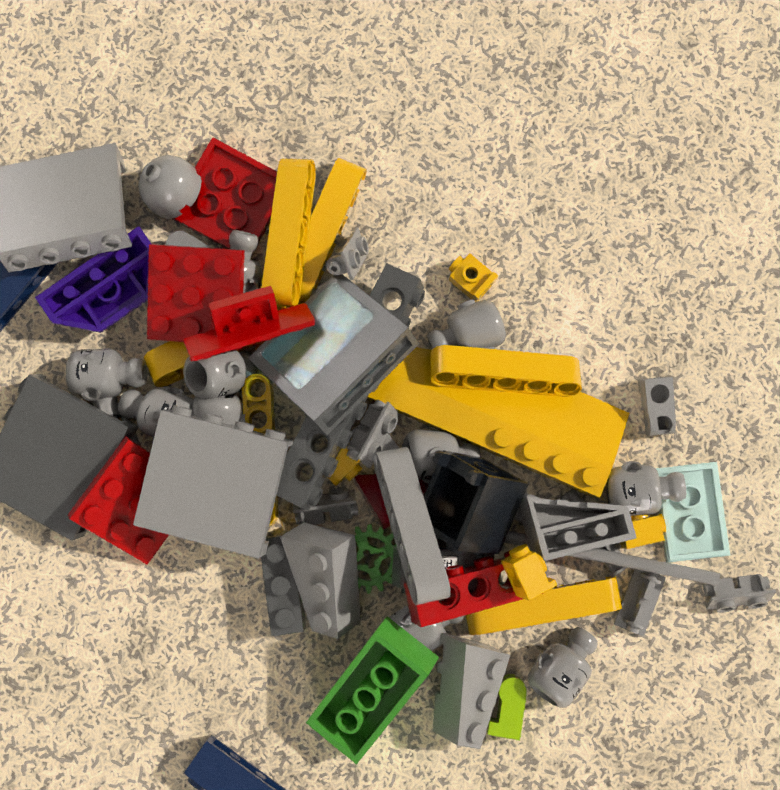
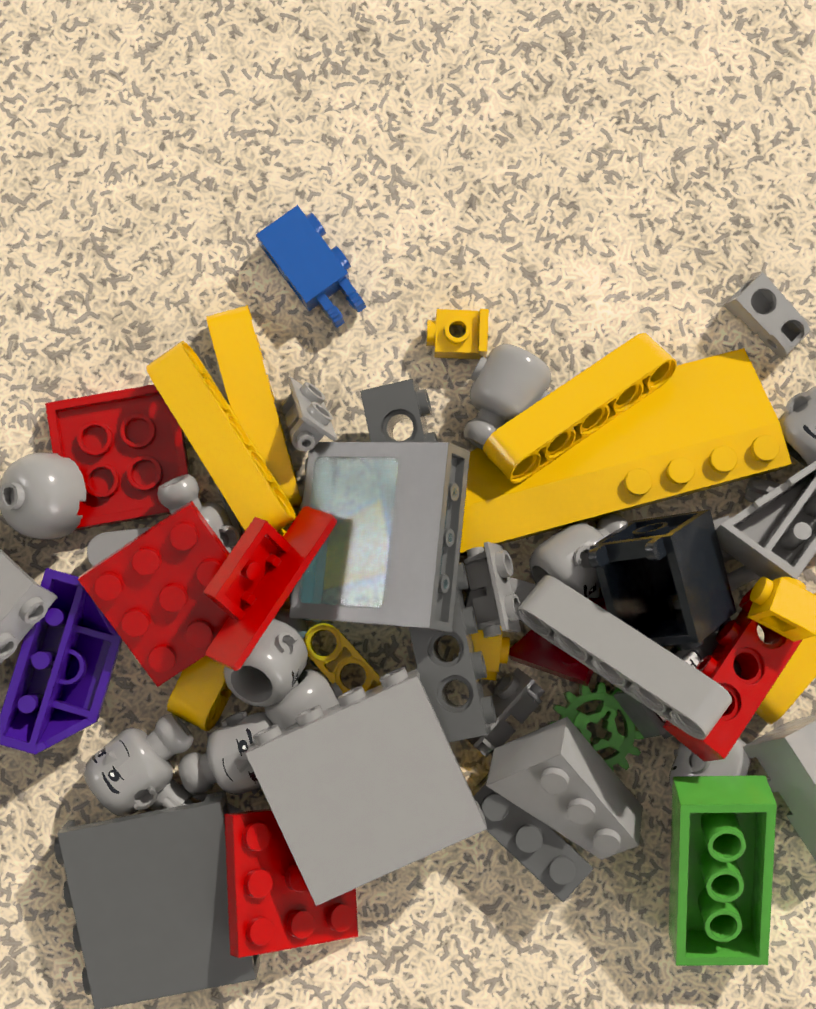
camera: 45 degrees left, 0 degrees up
(419, 171) = (308, 263): none -> blue hinge

